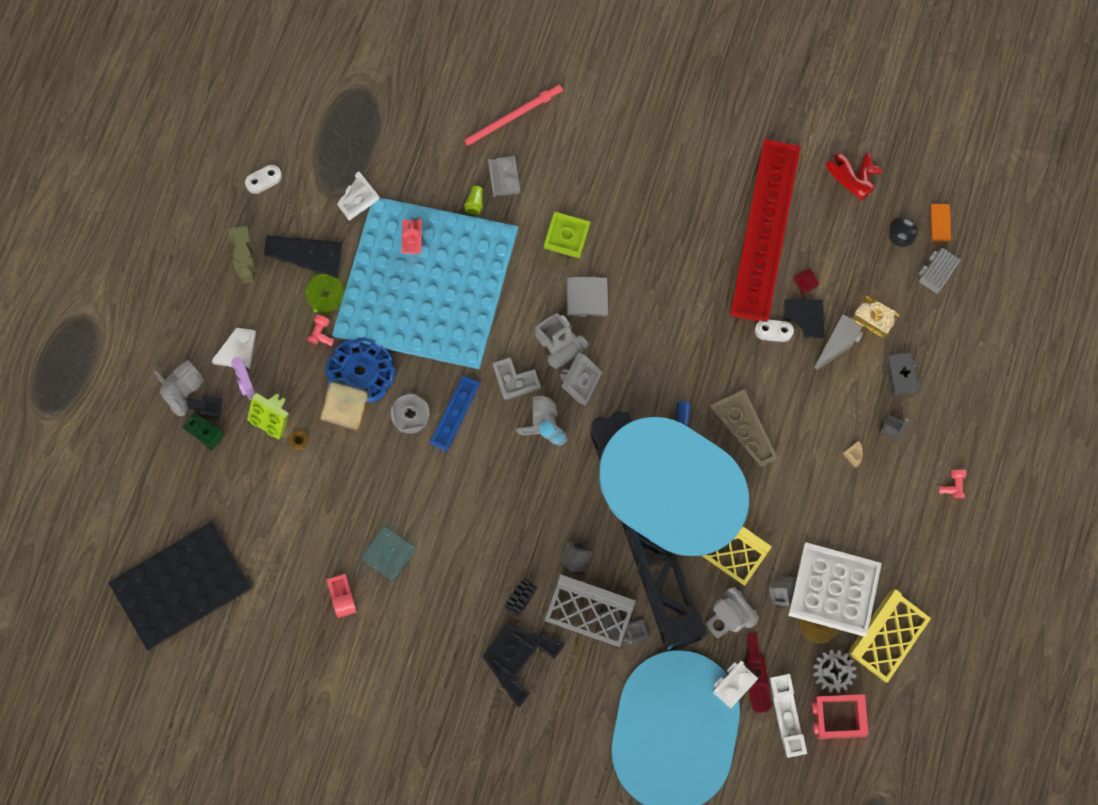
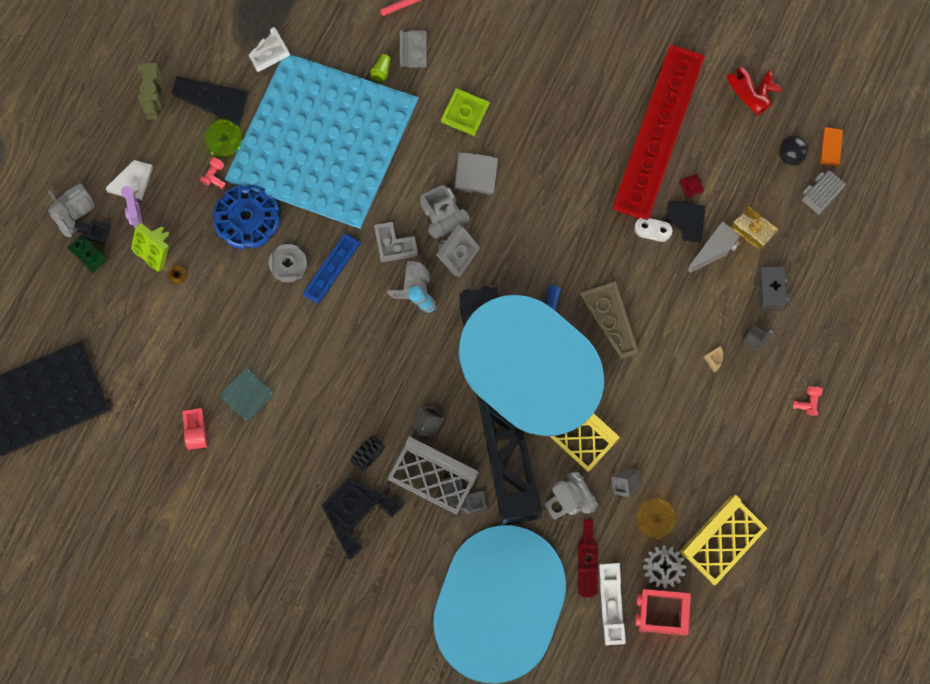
camera: 10 degrees right, 0 degrees up
(264, 180) = (182, 24): white plate -> none
(344, 405) = (225, 247): clear yellow plate -> none
(411, 236) = (313, 94): coral hips -> none
(735, 684) = (563, 566): white bracket -> none
(835, 589) = (676, 487): white plate -> none

